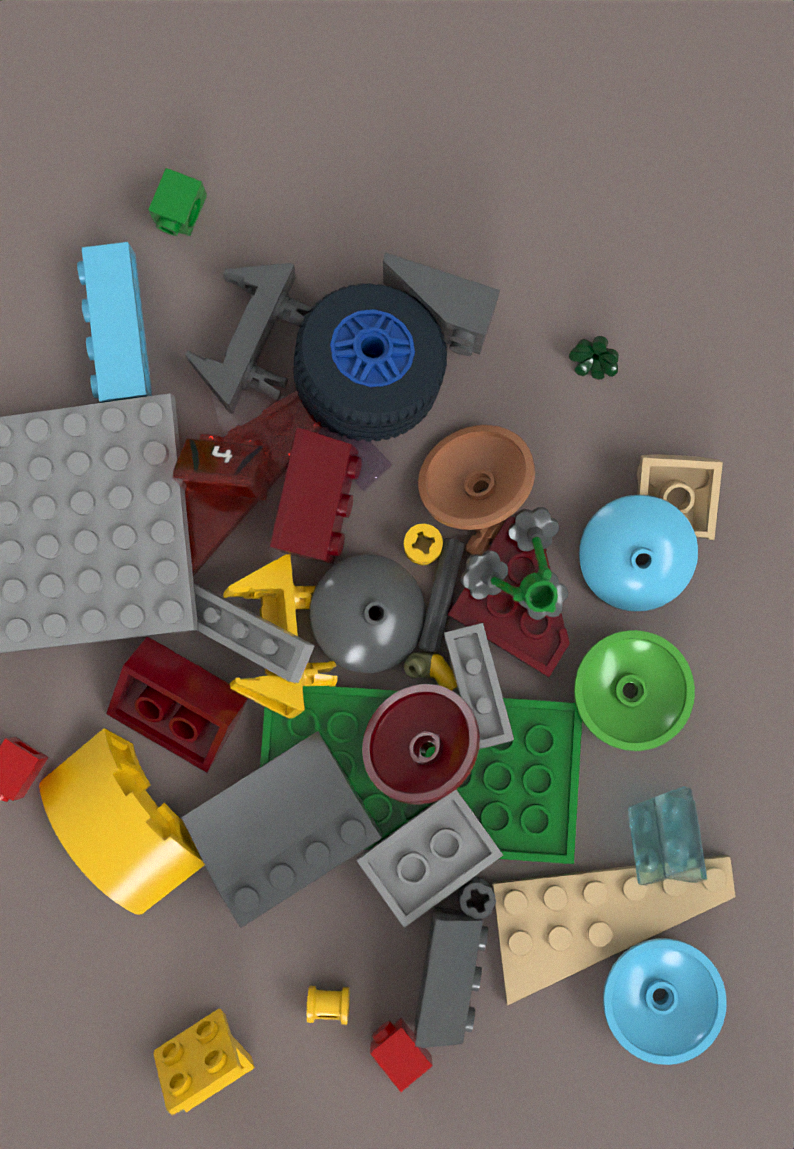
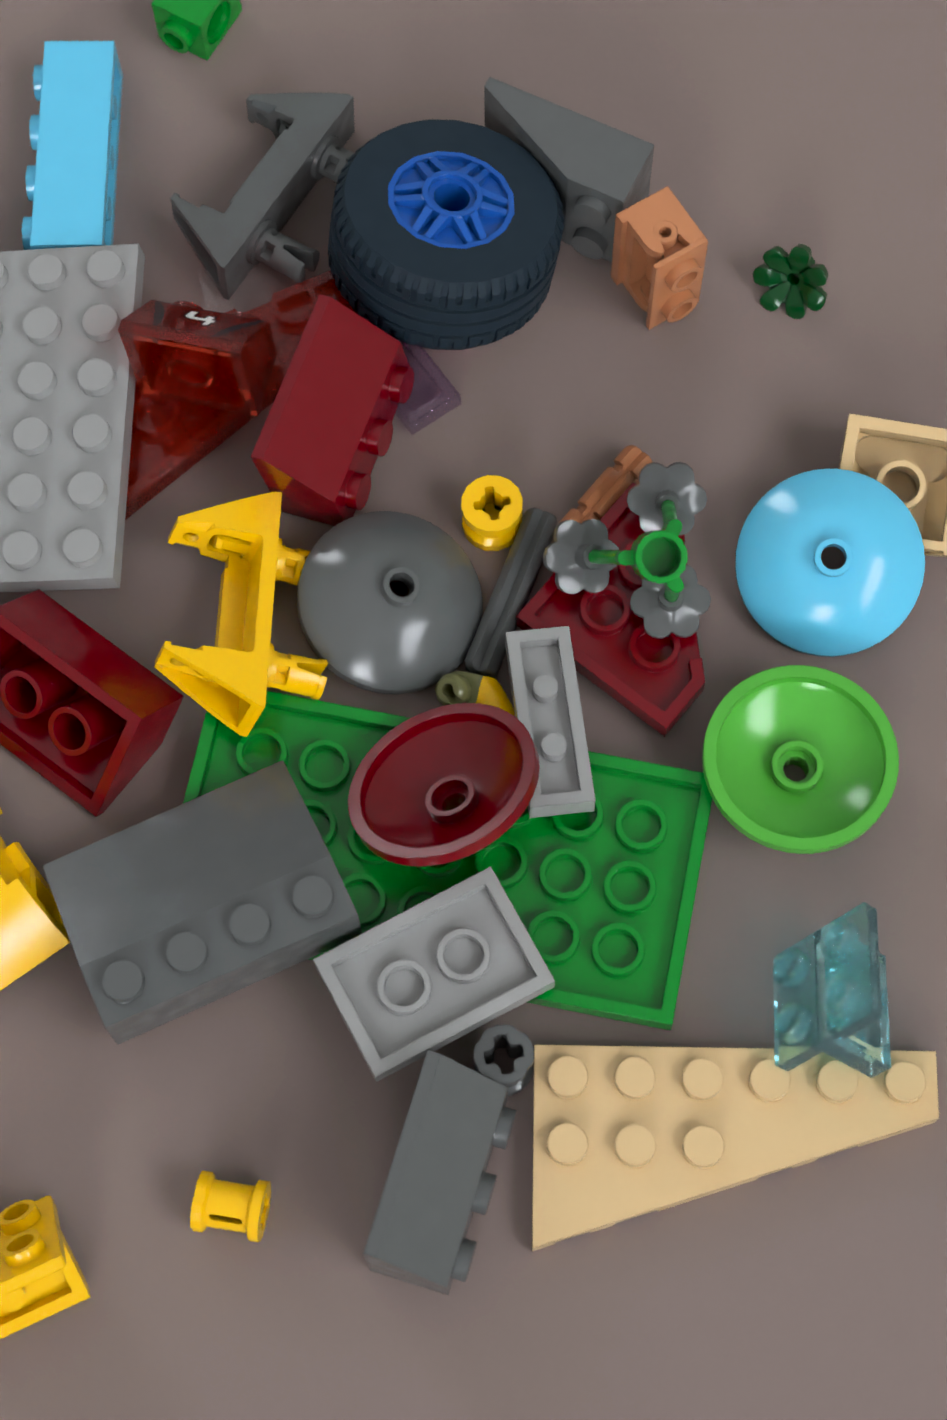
camera: 10 degrees right, 15 degrees down
(251, 635) = (202, 593): light grey plate -> none
(397, 1055) = (338, 1300): red brick -> none
(474, 461) = (587, 417): nougat dish -> none
(510, 359) = (659, 257): none -> nougat hinge
(683, 1020) = (838, 1233): medium azure dish -> none

